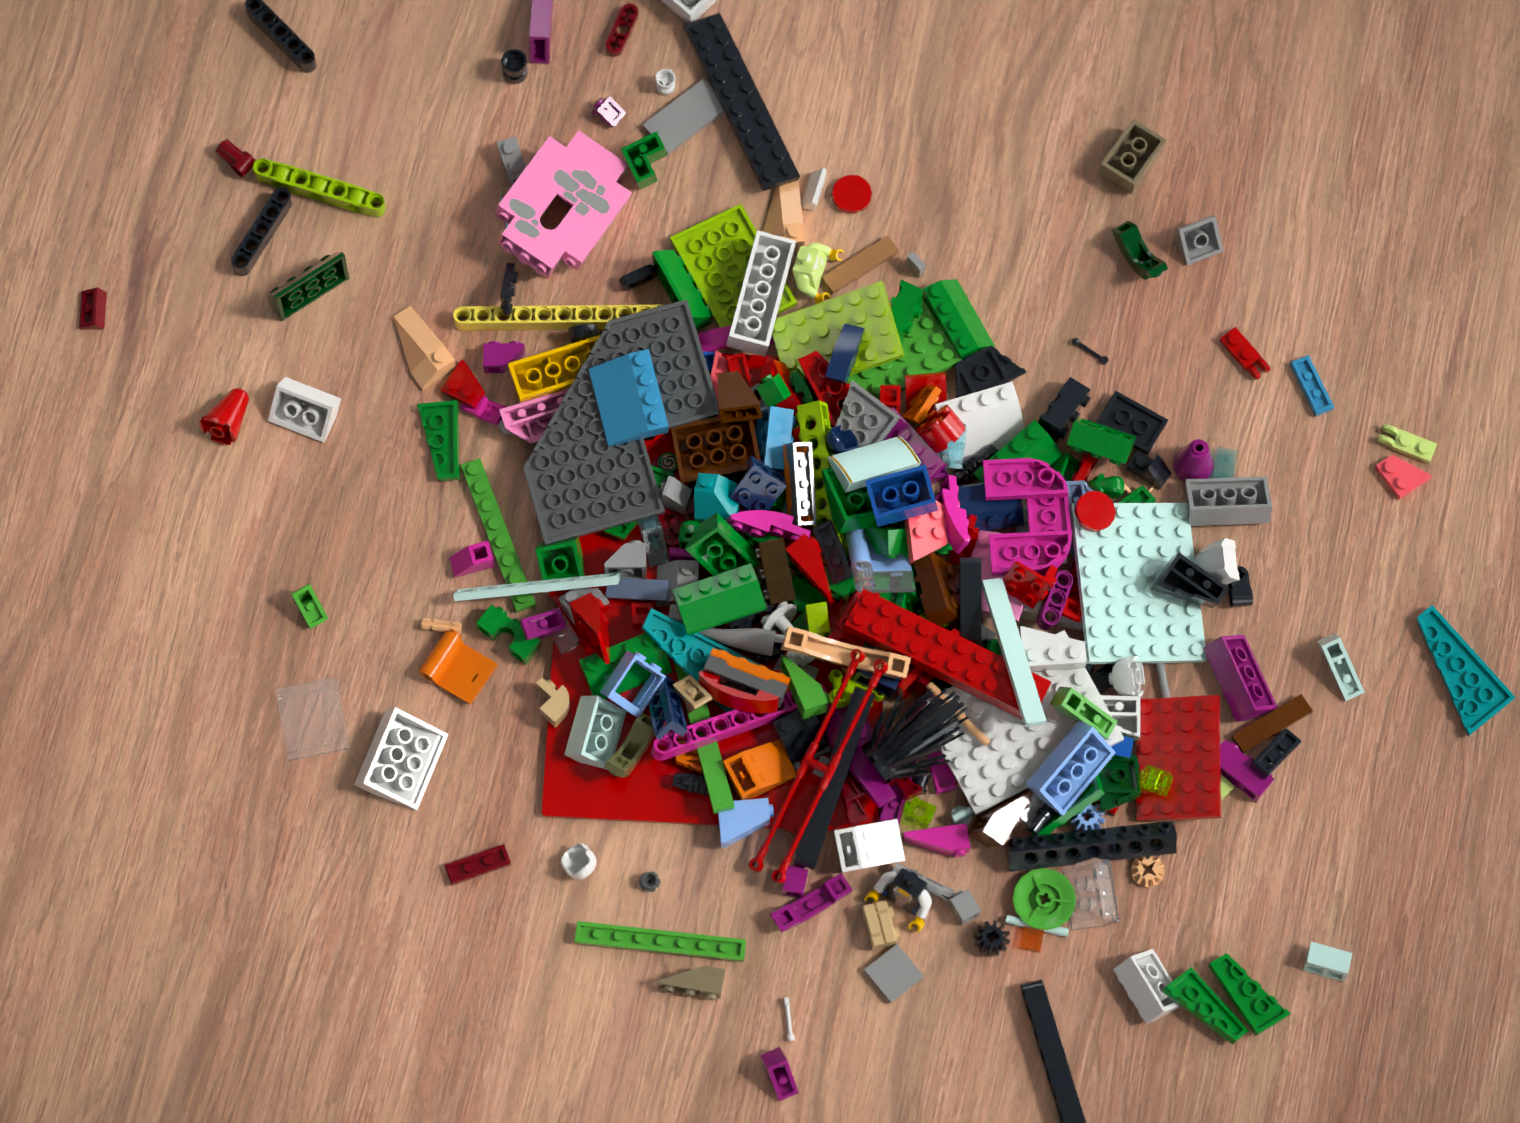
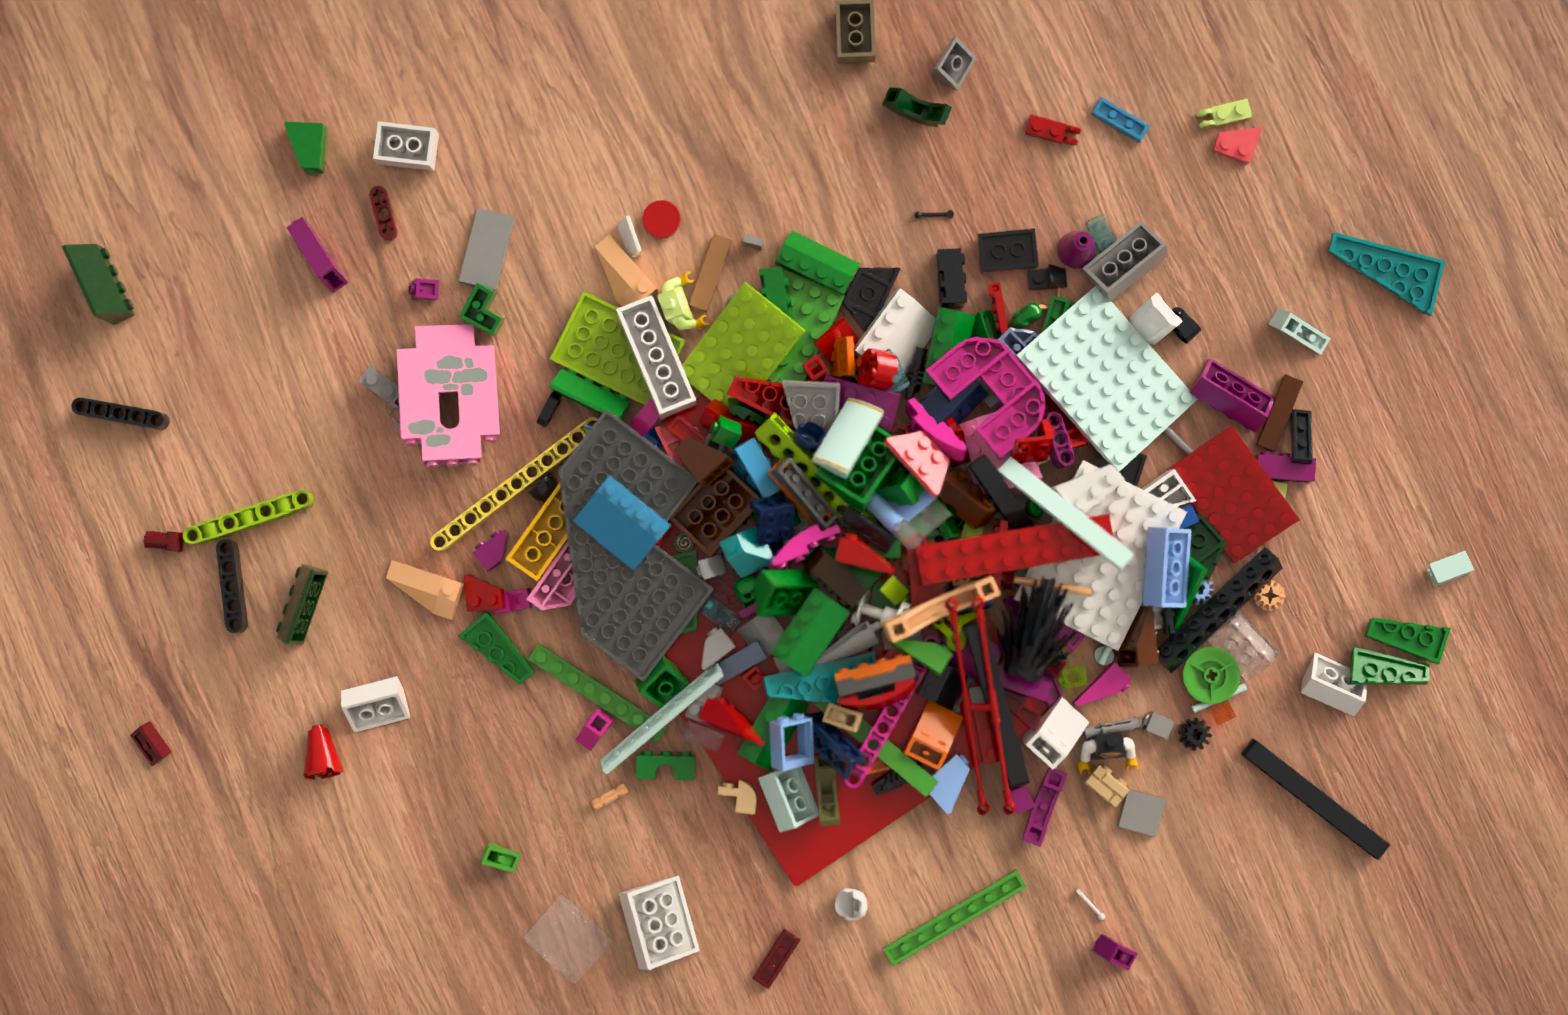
camera: 30 degrees left, 15 degrees up
(455, 667) = (644, 820): orange door -> none
(508, 288) = (458, 494): black plate -> none
(514, 66) = (323, 306): black wheel -> none
(543, 624) = (688, 744): magenta slope -> none
(649, 876) = (917, 877): dark grey plate -> none
(663, 78) = (448, 229): white wheel -> none
(699, 981) = (1007, 925): dark tan slope -> none
(741, 102) = (521, 206): black plate -> none
(844, 354) = (759, 362): dark blue slope -> none
(901, 495) = (894, 454): blue brick -> none
(1079, 708) = (1145, 517): bright green slope -> none
(1095, 511) = (1039, 349): red tile -> none
(1101, 441) = (1000, 285): green slope -> none
(1127, 677) = (1152, 459): white cylinder -> none
(1155, 780) = (1231, 526): clear neon green brick -> none
(1189, 582) = (1147, 351): black wedge -> none

